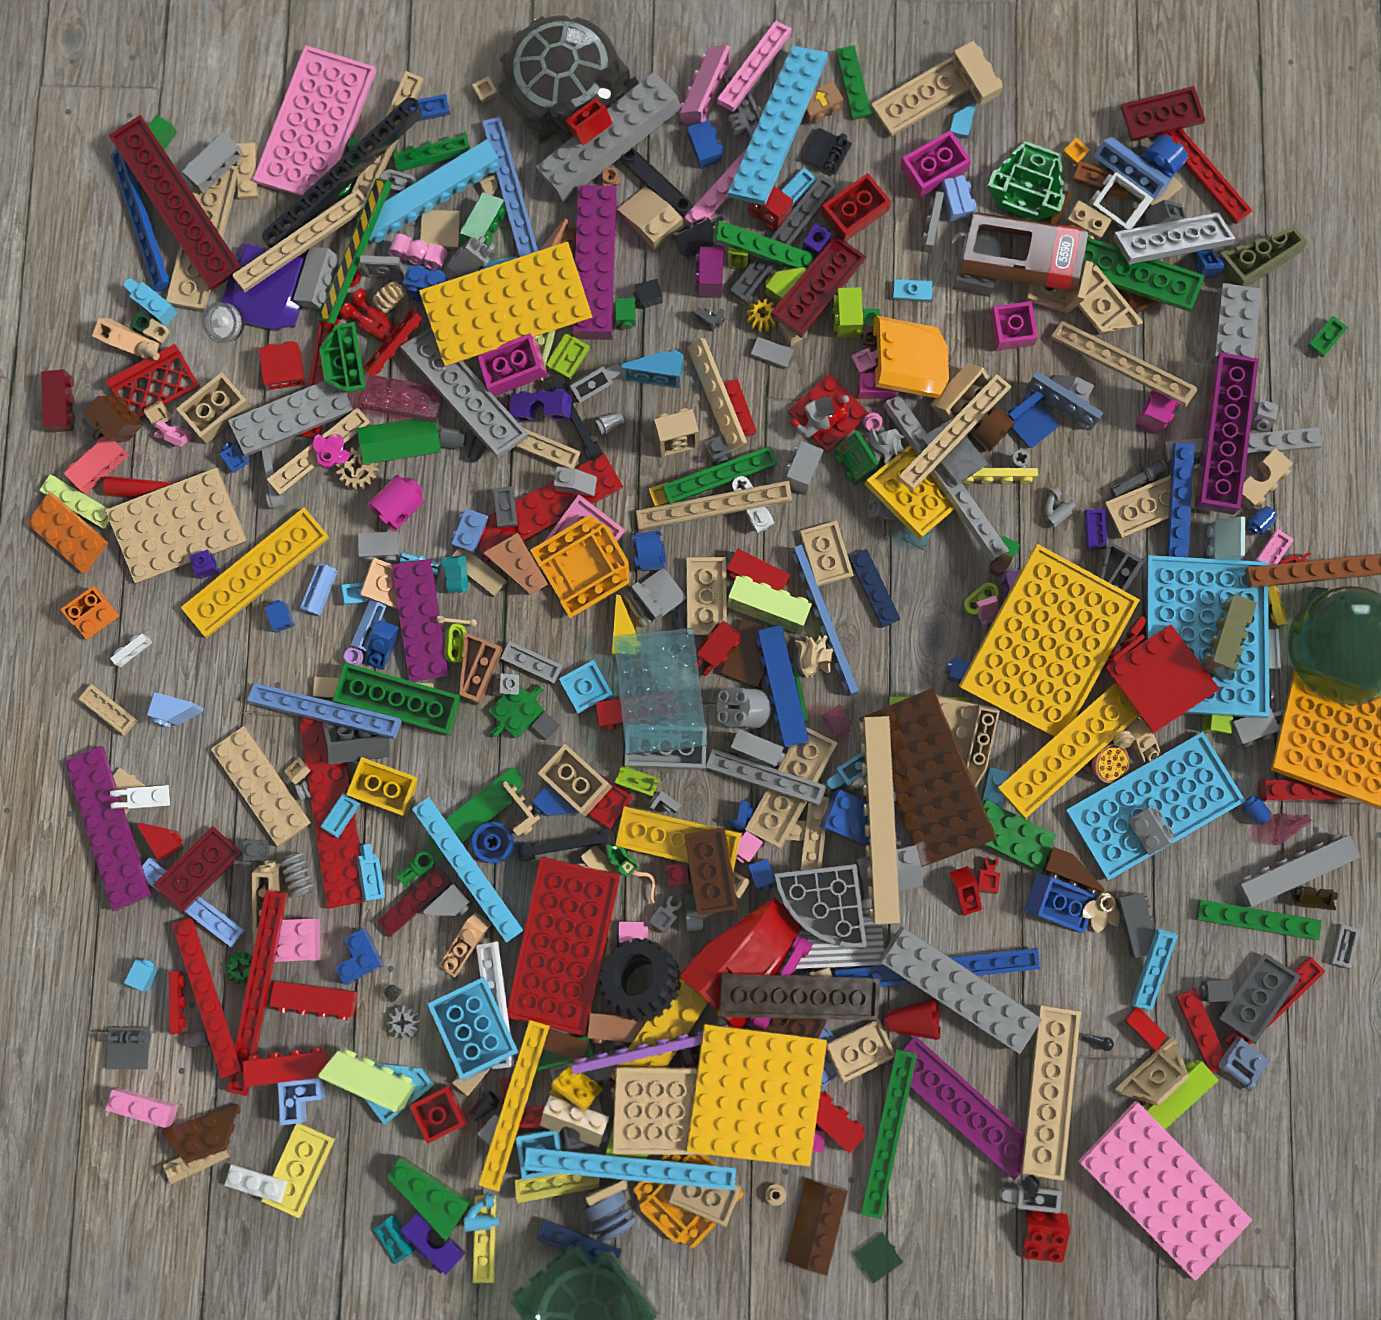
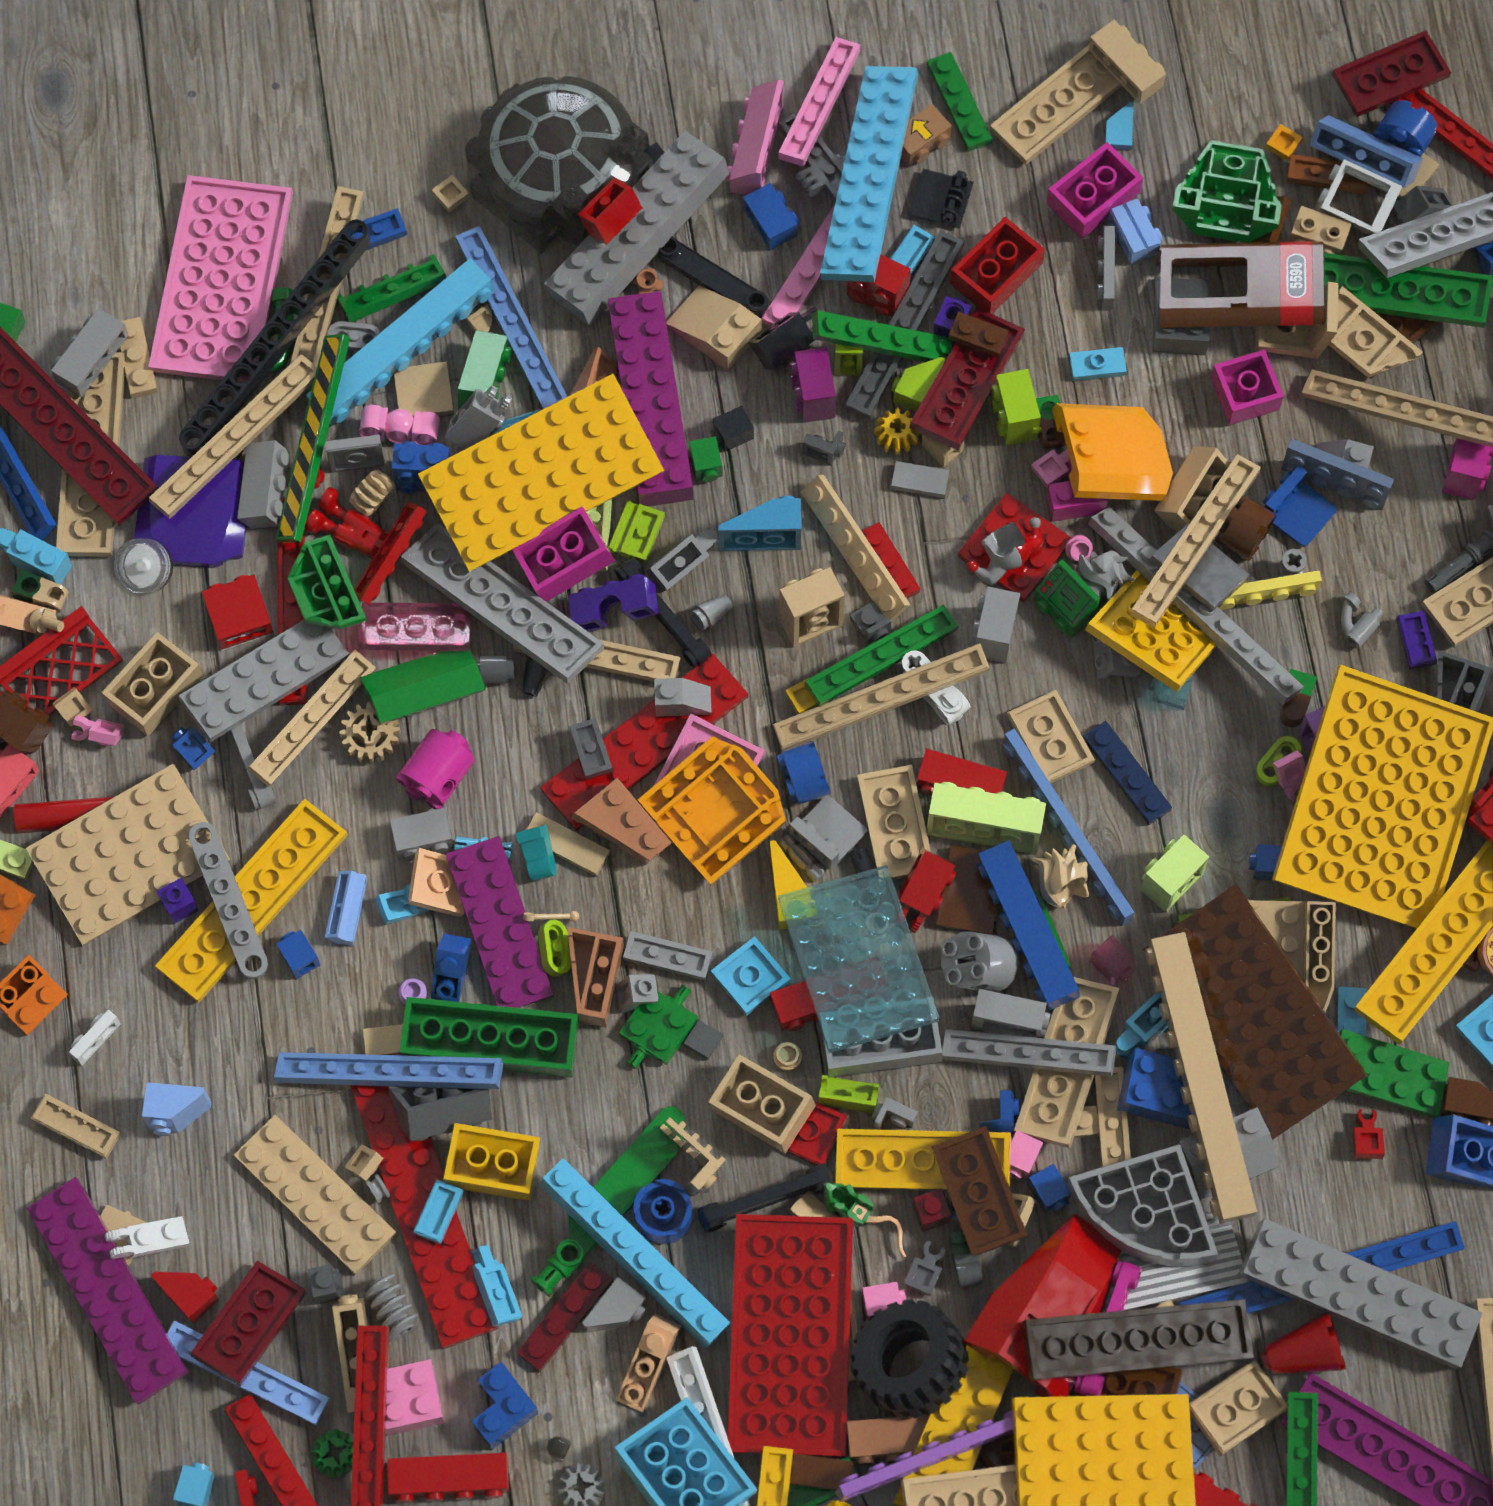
camera: 10 degrees left, 10 degrees down
(237, 570) = (228, 900): none -> light grey plate
(332, 448) = (329, 710): dark pink plate -> none
(365, 624) = (426, 944): light blue piece -> none
(469, 530) = (545, 791): medium blue bracket -> none
(552, 803) = (738, 1143): blue slope -> none
(600, 747) = (787, 1056): none -> tan plate
(832, 255) = (978, 334): none -> reddish brown plate
(892, 667) = (1174, 872): none -> yellowish green brick
(966, 890) = (1340, 1160): red slope -> none

